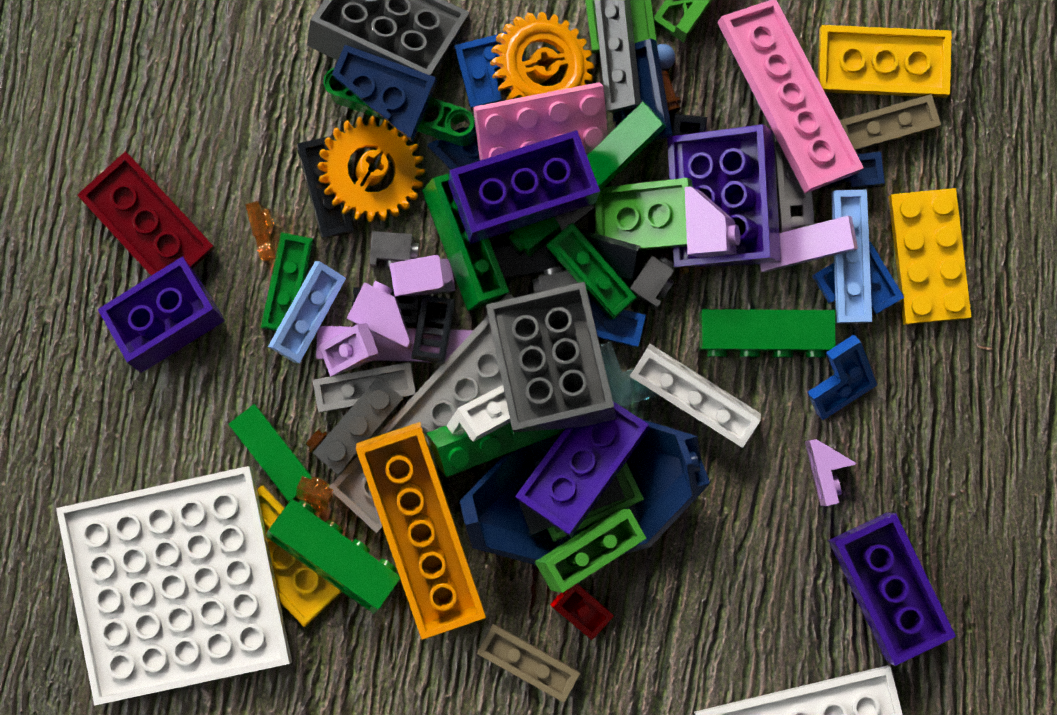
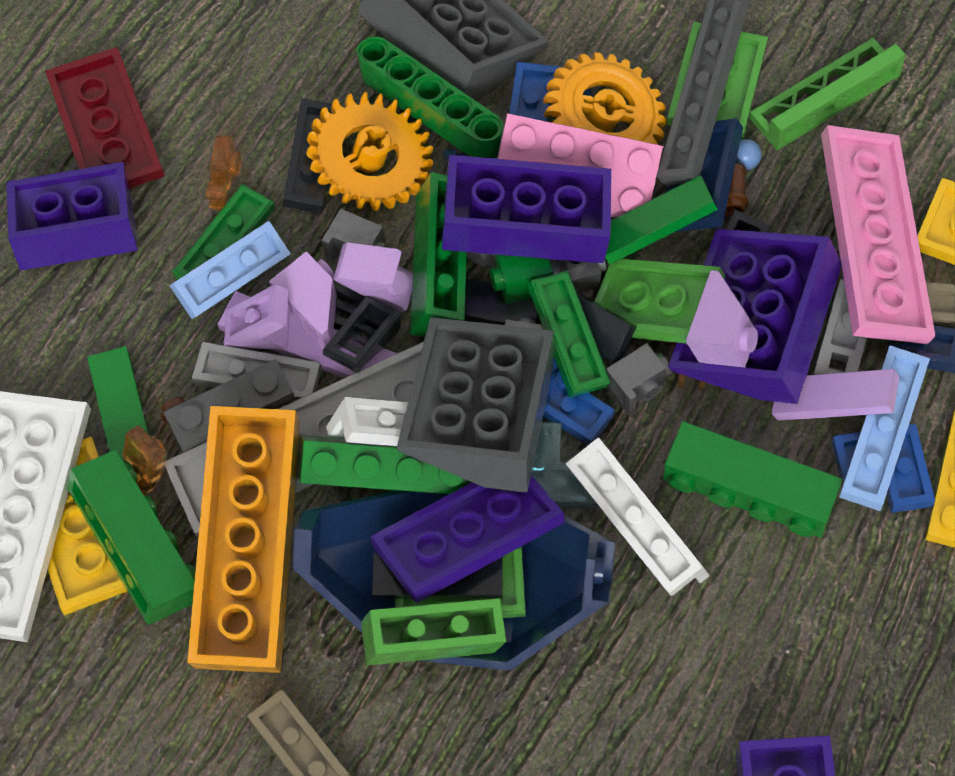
camera: 25 degrees right, 20 degrees down
(386, 87) = (422, 66): dark blue wing -> none
(582, 610) = (395, 710): red slope -> none
(822, 461) = (766, 655): lavender slope -> none
(850, 378) = (835, 568): blue plate -> none

